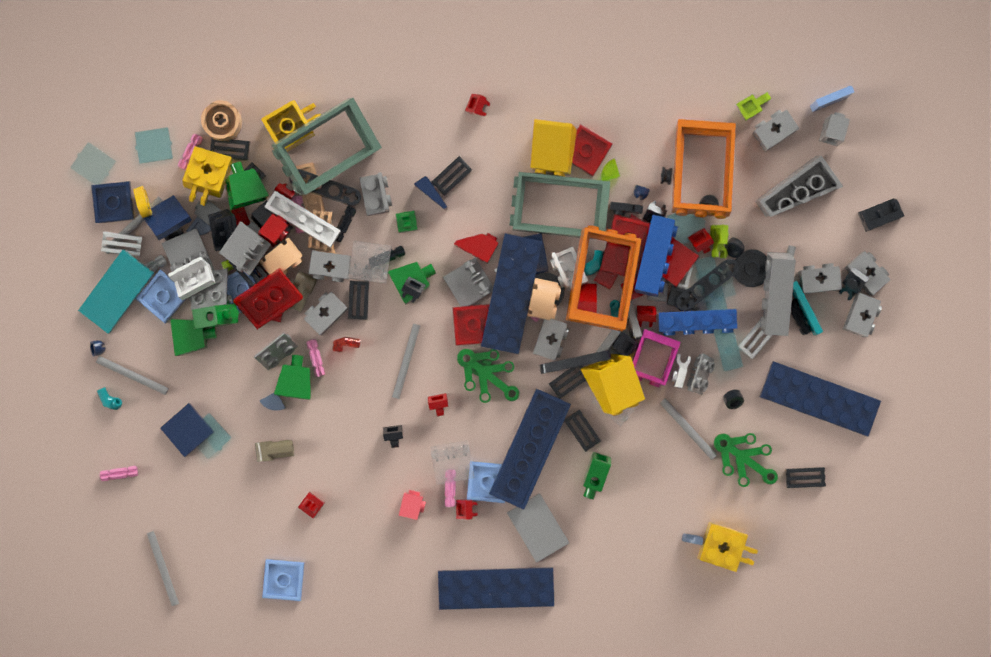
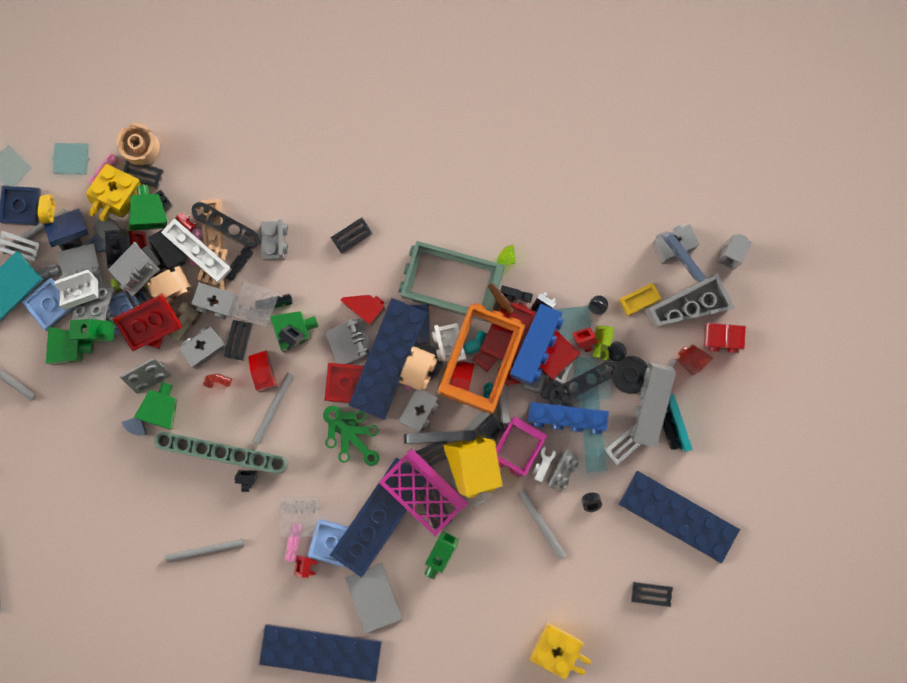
camera: 15 degrees right, 5 degrees down
(187, 430) = (44, 439): dark blue tile -> none
(216, 440) = (65, 448): clear light blue piece -> none
(269, 450) = (121, 473): dark tan piece -> none
(274, 229) = (165, 256): red brick -> none
(283, 580) = (109, 606): light blue tile -> none
(291, 114) = (213, 164): yellow hinge -> none
(311, 505) = (152, 535): red tile -> none
(315, 358) = (185, 390): bright pink axle -> none
(355, 417) = (212, 452): none -> sand green beam
(362, 128) = (270, 170): sand green door -> none
(364, 511) = (204, 550): none -> light grey bar
(388, 326) = (262, 371): none -> red slope
(406, 221) = (299, 272): green tile -> none
(412, 505) = (251, 553): coral brick -> none
(428, 189) = (325, 242): dark blue slope -> none
(438, 402) = (296, 454): red tile -> none
(476, 104) = (387, 169): red tile -> none
(552, 147) = (454, 222): yellow slope -> none
(579, 404) = (438, 483): none -> dark pink fence
(589, 150) = (487, 232): red tile -> none
(612, 215) = (501, 299): none -> reddish brown animal
(641, 191) = (534, 280): dark blue hinge -> none
(646, 313) = (519, 402): red tile -> none
(666, 175) = (560, 269): black bush -> none
(692, 539) = (527, 637): sand blue tile -> none
(704, 128) = (607, 230): orange door -> none
(742, 457) = (591, 562): green plant -> none
(749, 191) = (640, 299): none -> yellow tile
(751, 106) = (655, 216): lime plate -> none
(785, 143) = (683, 256): none -> sand blue tile
(810, 243) = (693, 359): none -> clear red slope
(831, 280) = (708, 398): light grey brick -> none
(832, 98) = (736, 221): light blue tile -> none
(838, 215) = (724, 337): none -> red brick
(853, 283) = (730, 406): black plate -> none
(854, 322) = (724, 445): light grey brick -> none
(879, 274) = (737, 392): light grey brick -> none
(881, 214) = (767, 343): black hinge -> none

